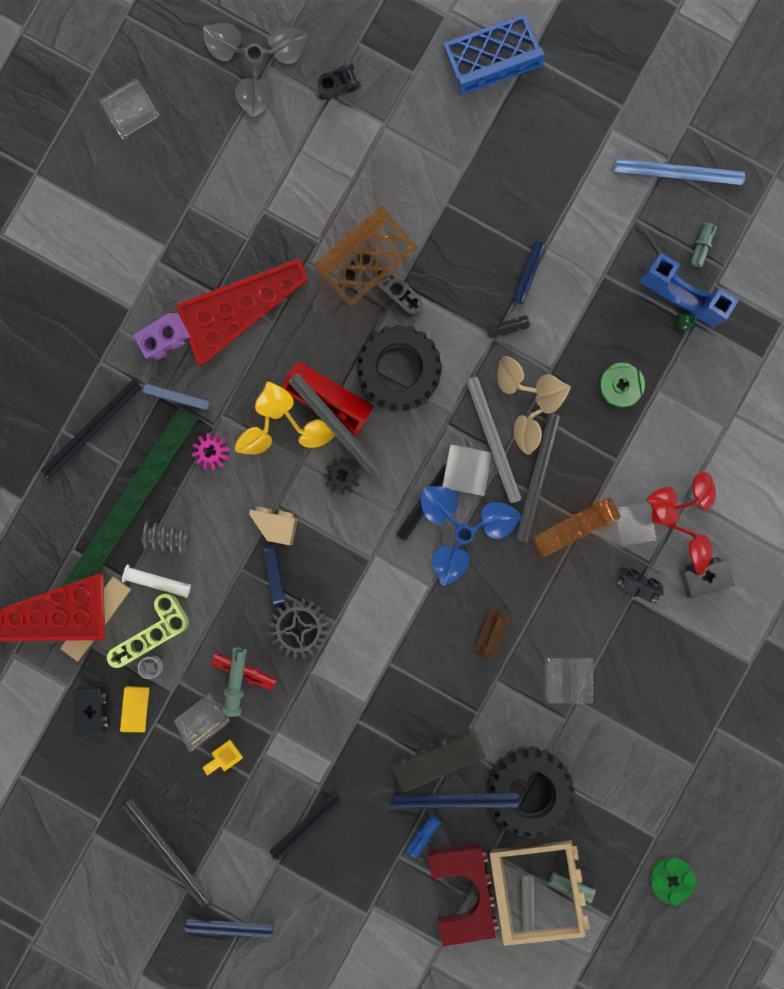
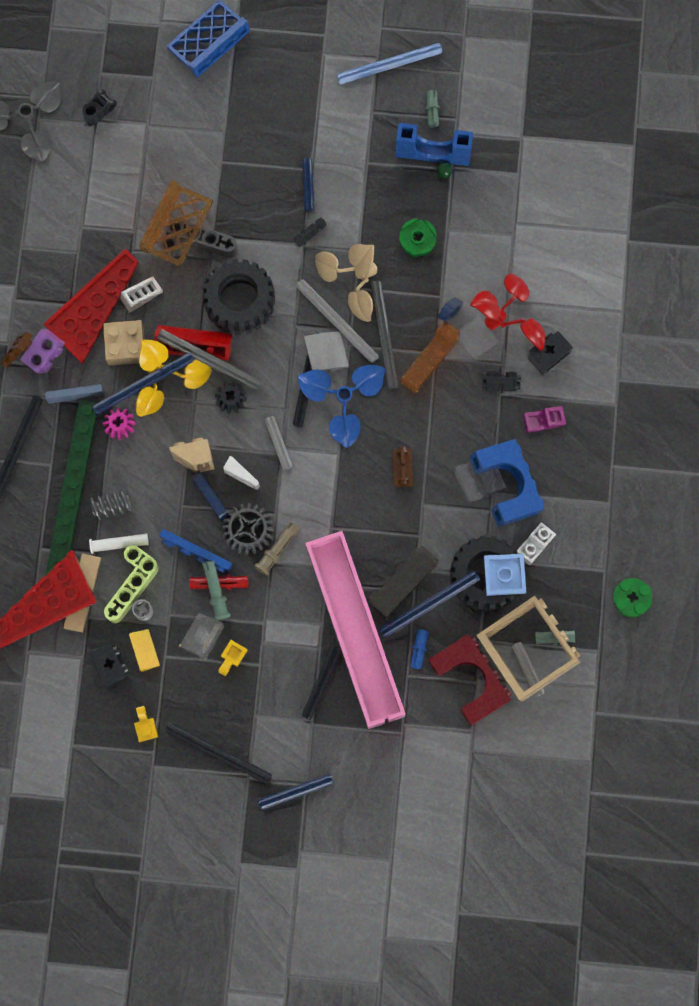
camera: 15 degrees left, 10 degrees down
(102, 791) = (146, 727): none -> yellow plate
(139, 319) = (20, 344): none -> reddish brown wing
(238, 636) = (188, 548): none -> blue plate
(253, 363) = (123, 342): none -> tan brick
(254, 421) = (142, 383): none -> dark blue axle
(279, 326) = (130, 292): none -> white slope
(312, 668) = (272, 555): none -> dark tan pin
(315, 561) = (239, 473): none -> white slope
(364, 790) = (355, 630): none -> bright pink piece
(372, 547) = (278, 443): none -> light grey axle
(549, 810) = (504, 574): none -> light blue plate
(596, 777) = (536, 543): none -> white slope
(608, 729) = (509, 458): none -> blue arch
(621, 486) = (450, 309): none -> dark blue beam
(666, 647) = (544, 419): none -> magenta slope

